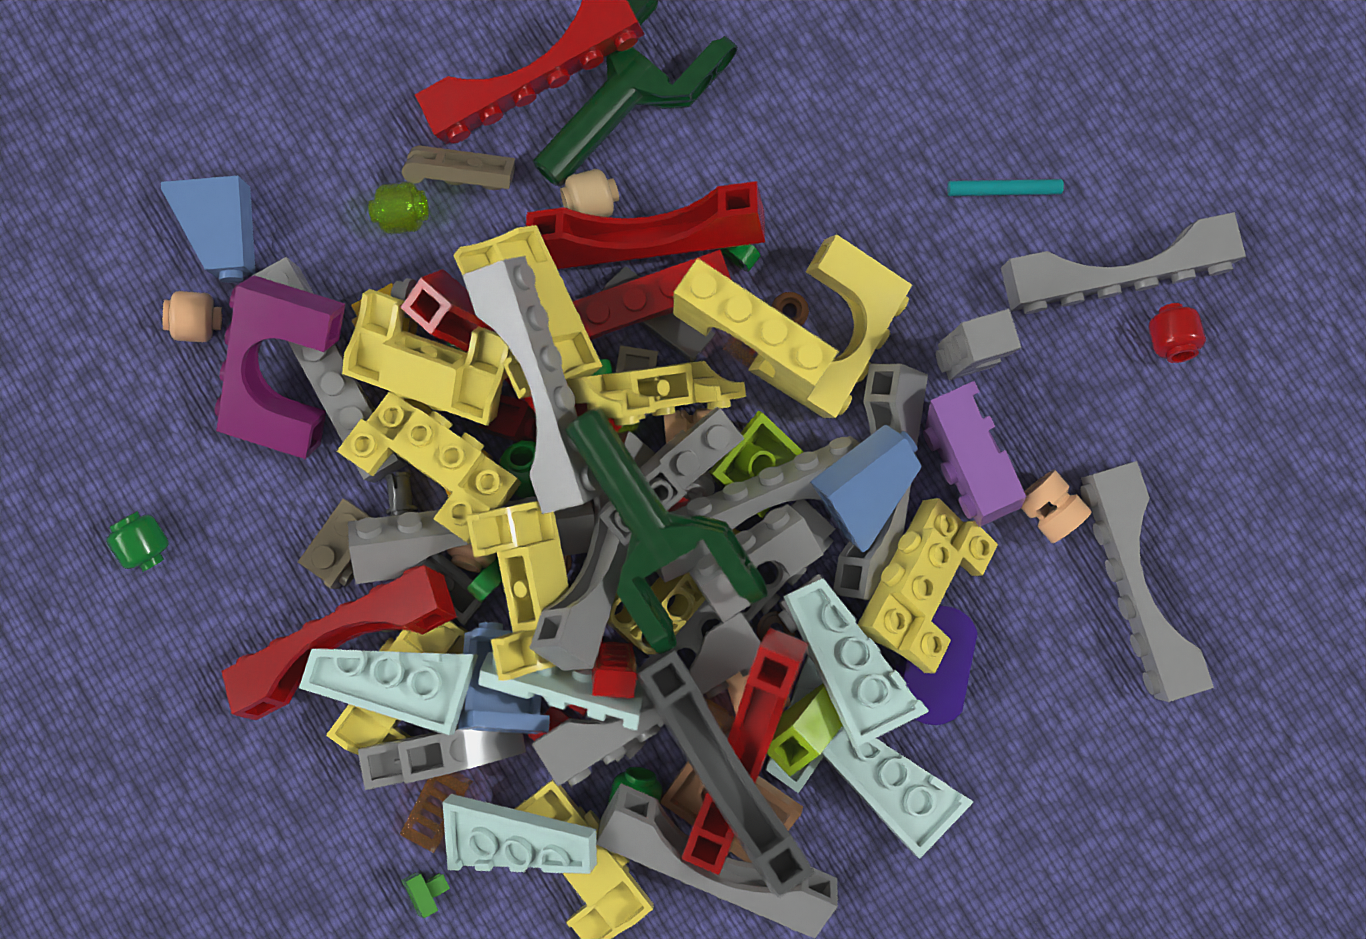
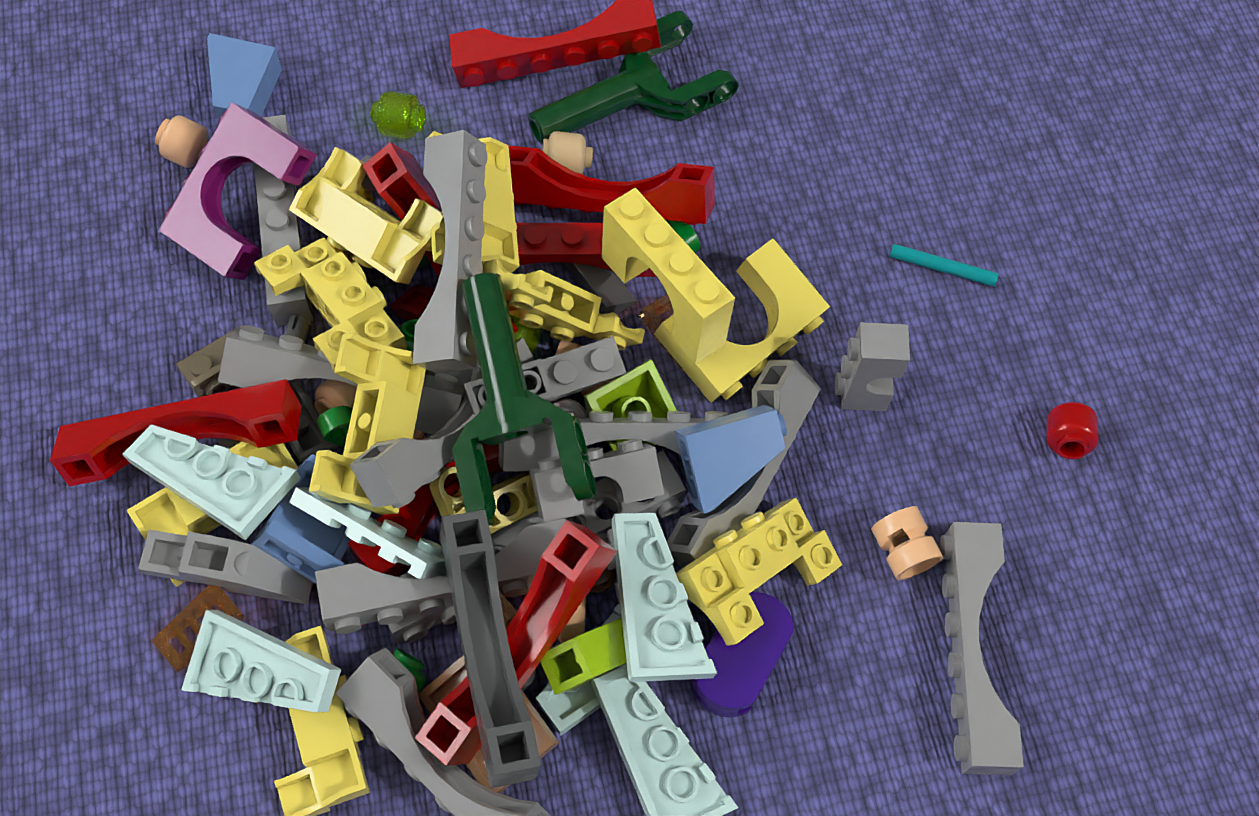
camera: 20 degrees right, 20 degrees down
(137, 541) = (44, 299): green head -> none
(422, 892) = (149, 701): bright green tile -> none
(458, 167) = (463, 102): dark tan plate -> none
(614, 671) = (417, 529): red slope -> none
(972, 457) = (838, 465): medium lavender wedge -> none
(1047, 278) = (960, 347): light grey arch -> none

